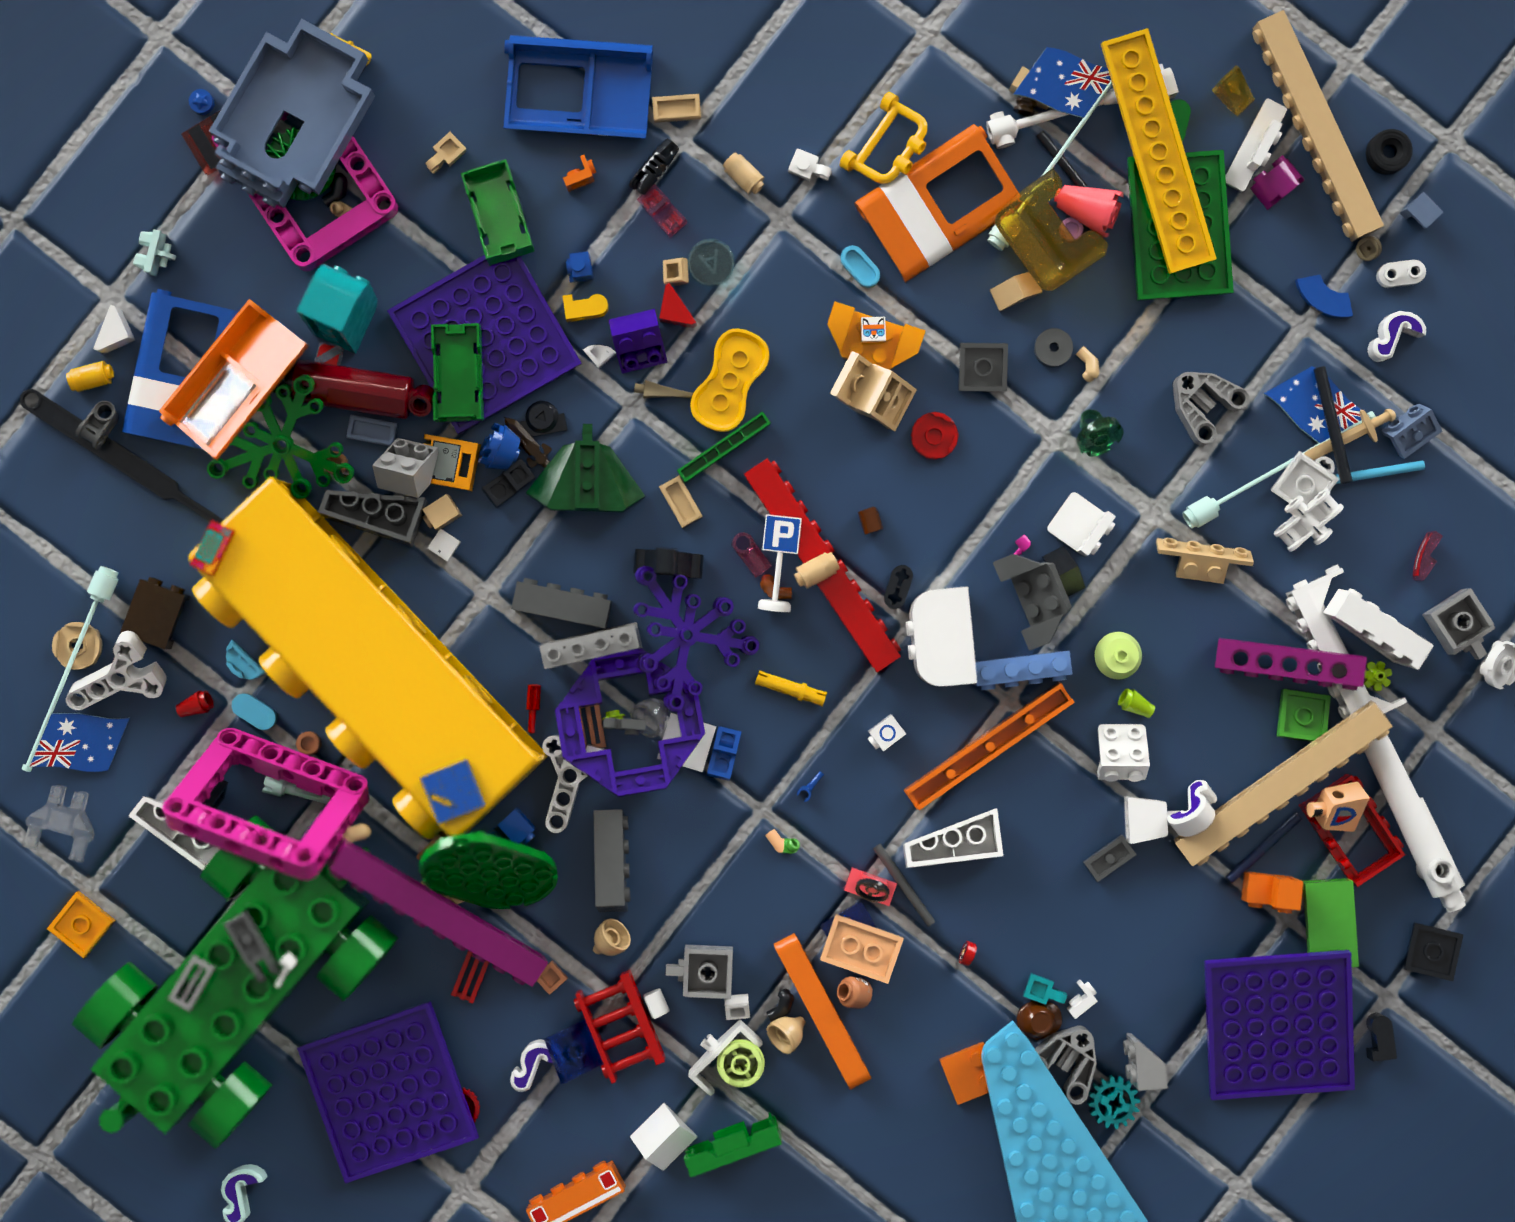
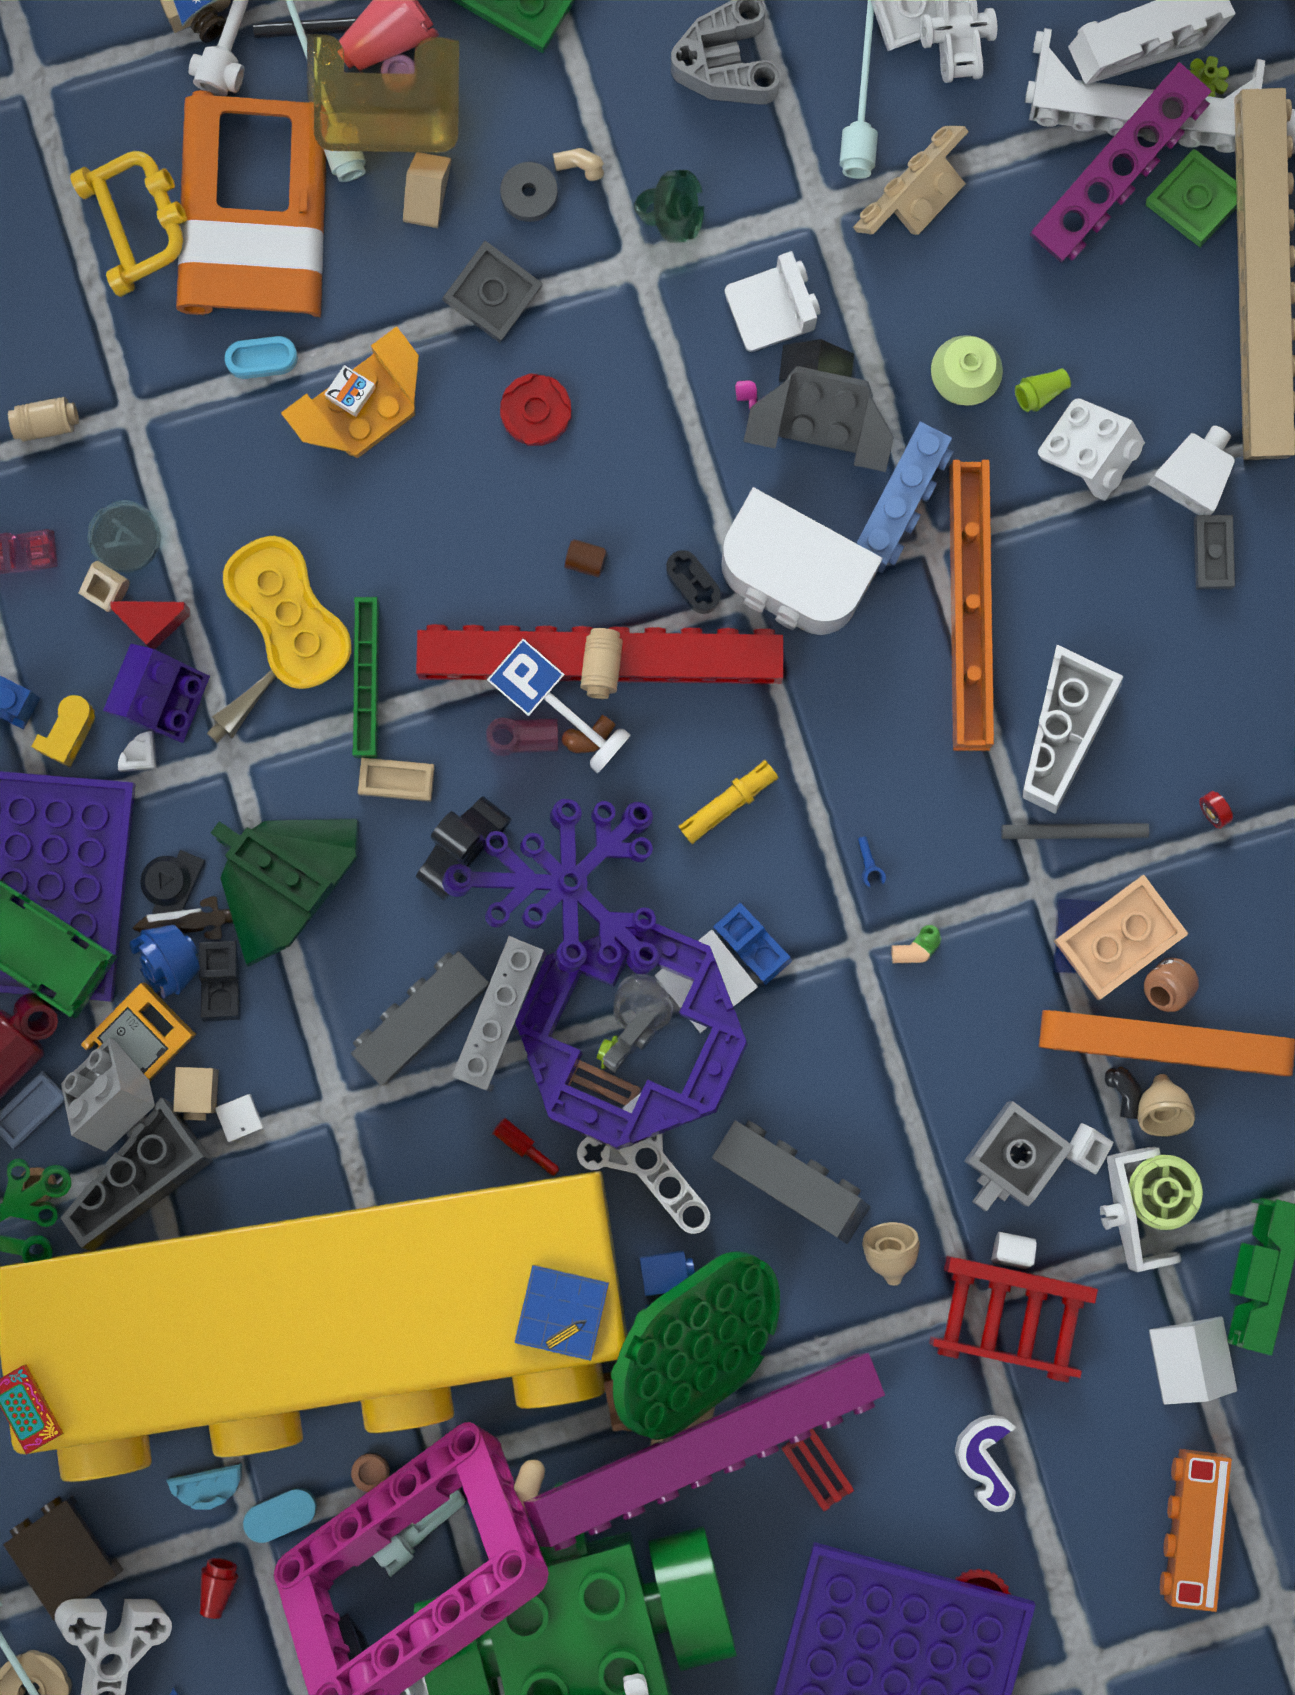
camera: 60 degrees left, 5 degrees down
(551, 977) = (890, 1363): nougat tile -> none
(573, 1051) = (1004, 1400): clear blue tile -> none
(806, 165) = (88, 338): white plate -> none
(870, 886) = (1048, 874): piece -> none
(873, 391) = (426, 443): tan bracket -> none
(885, 733) = (867, 721): white brick -> none
(1199, 812) = (1234, 398): white animal -> none

